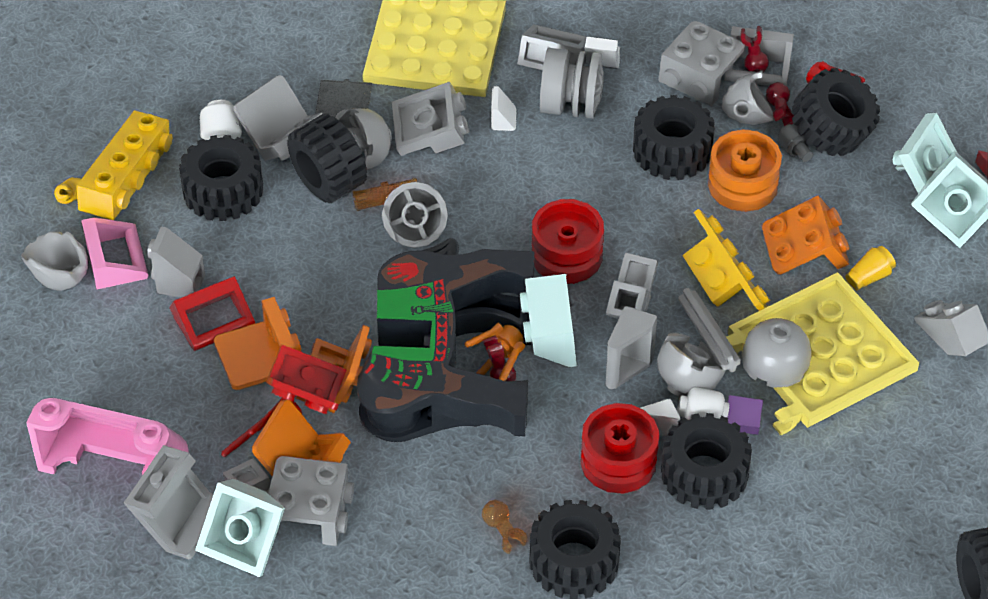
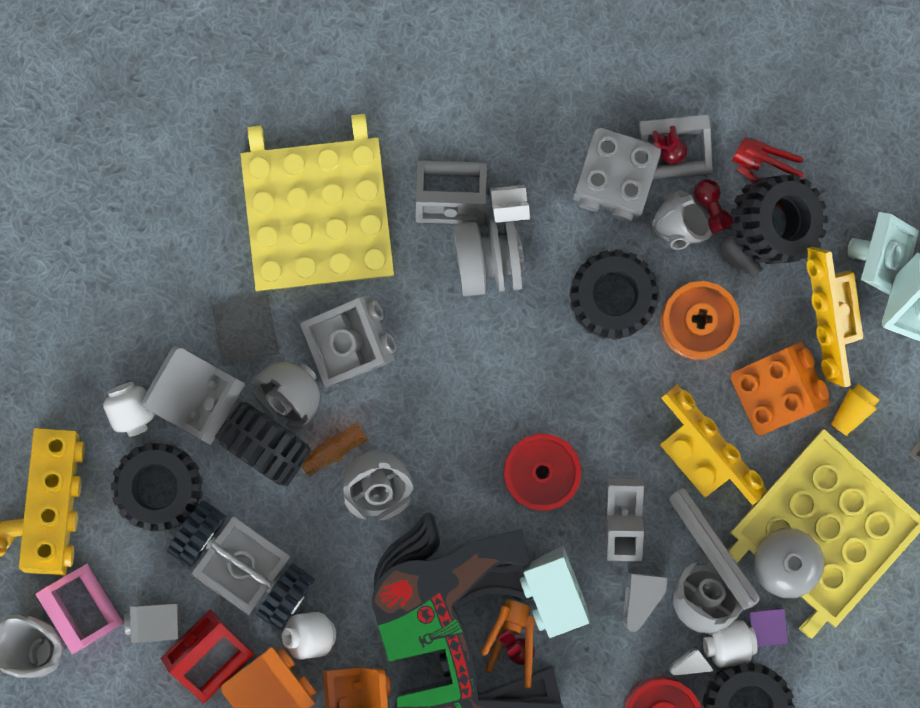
camera: 20 degrees left, 35 degrees up
(271, 244) = (240, 565): none -> plate
(311, 311) = (309, 635): none -> white head
(502, 111) = (422, 300): white slope -> none
(871, 186) = (836, 313): none -> yellow bracket

